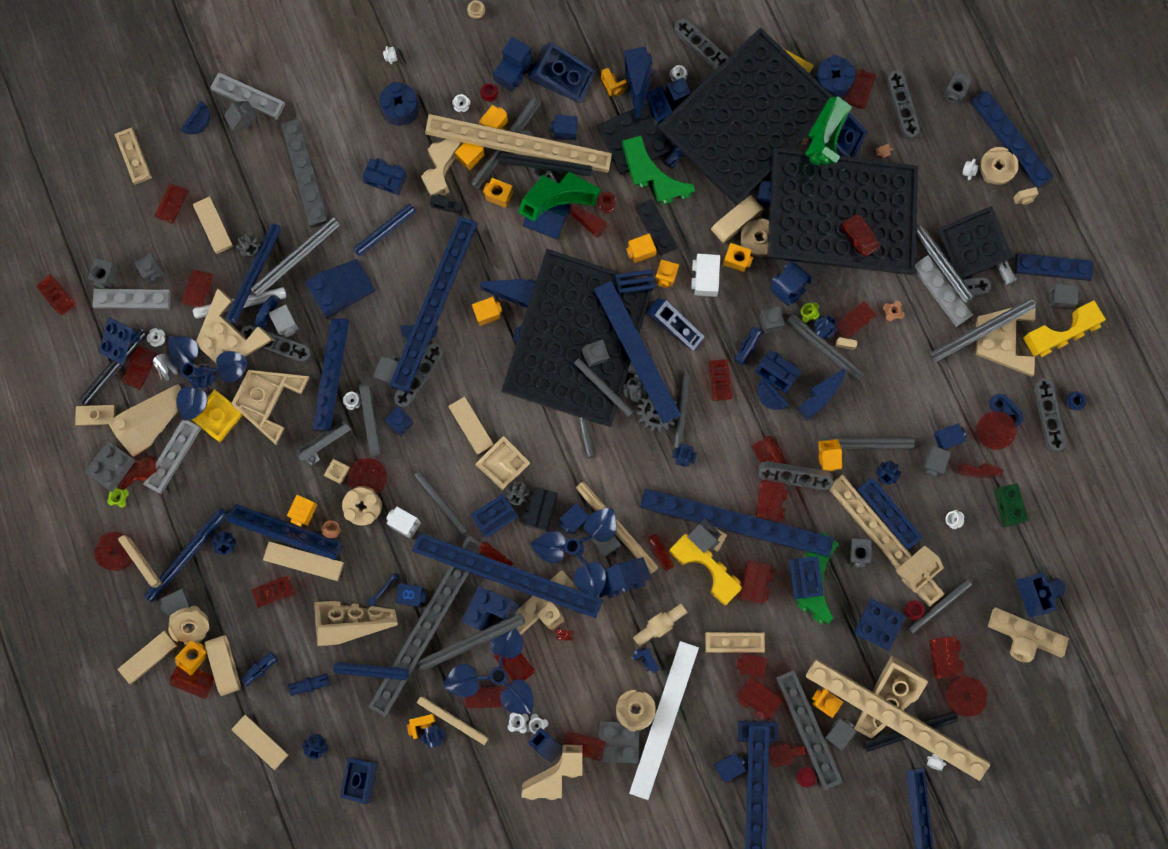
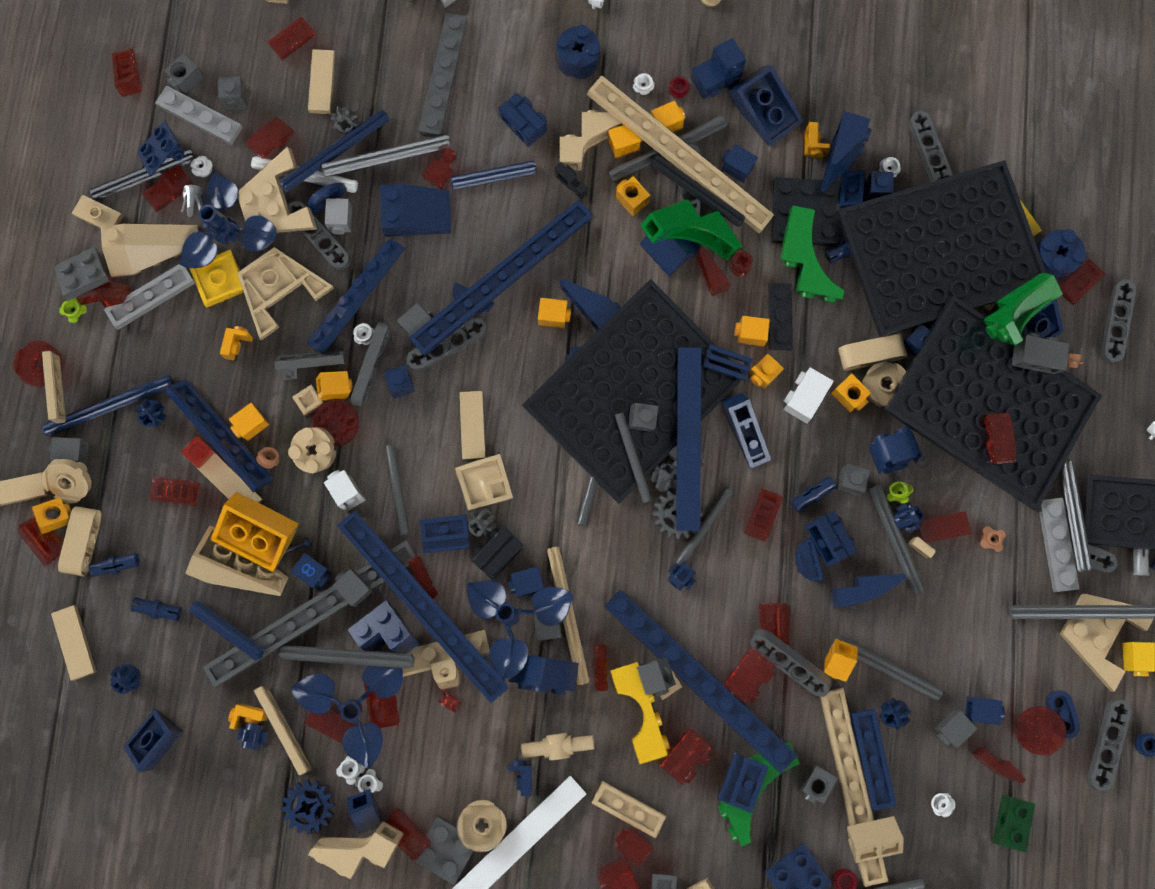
camera: 25 degrees right, 0 degrees up
(255, 459) = (231, 344): none -> light orange bracket
(276, 552) = (198, 452): none -> clear red plate
(341, 248) = (439, 171): none -> clear red plate
(351, 450) = (333, 385): none -> light orange brick
(352, 588) = (254, 531): none -> light orange slope
(448, 589) = (352, 587): none -> dark grey brick
(494, 759) = (304, 798): none -> dark blue gear
(858, 158) = (1041, 354): none -> dark grey brick

